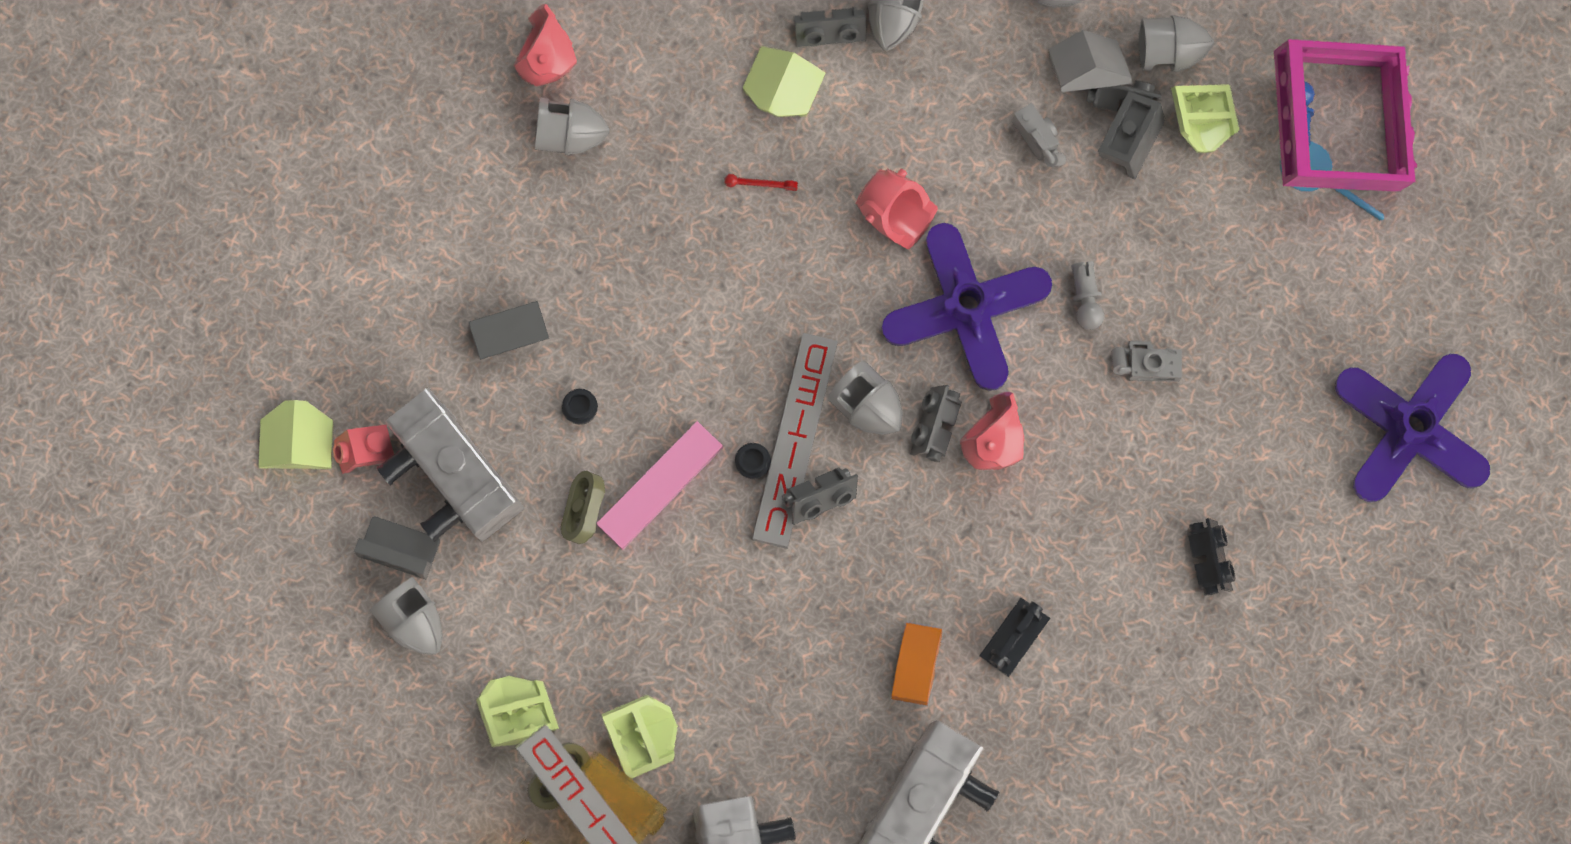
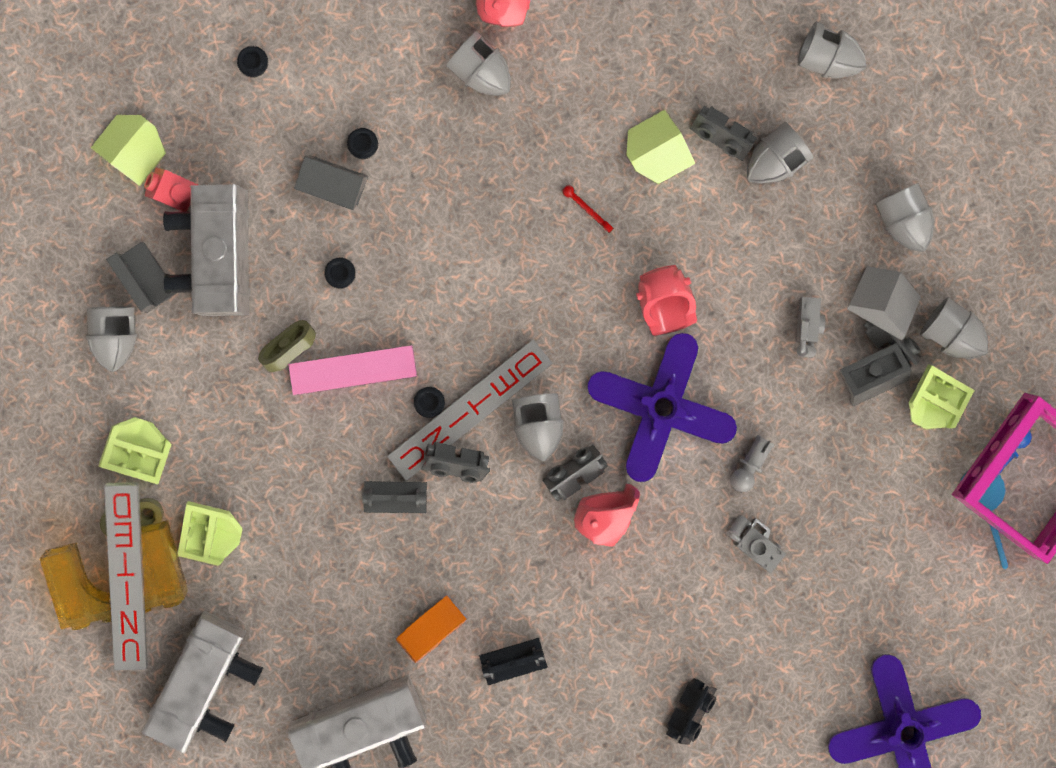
camera: 45 degrees right, 10 degrees up
(352, 278) = (252, 61): none -> black plate
(510, 276) = (362, 143): none -> black plate
(789, 570) = (394, 497): none -> dark grey hinge

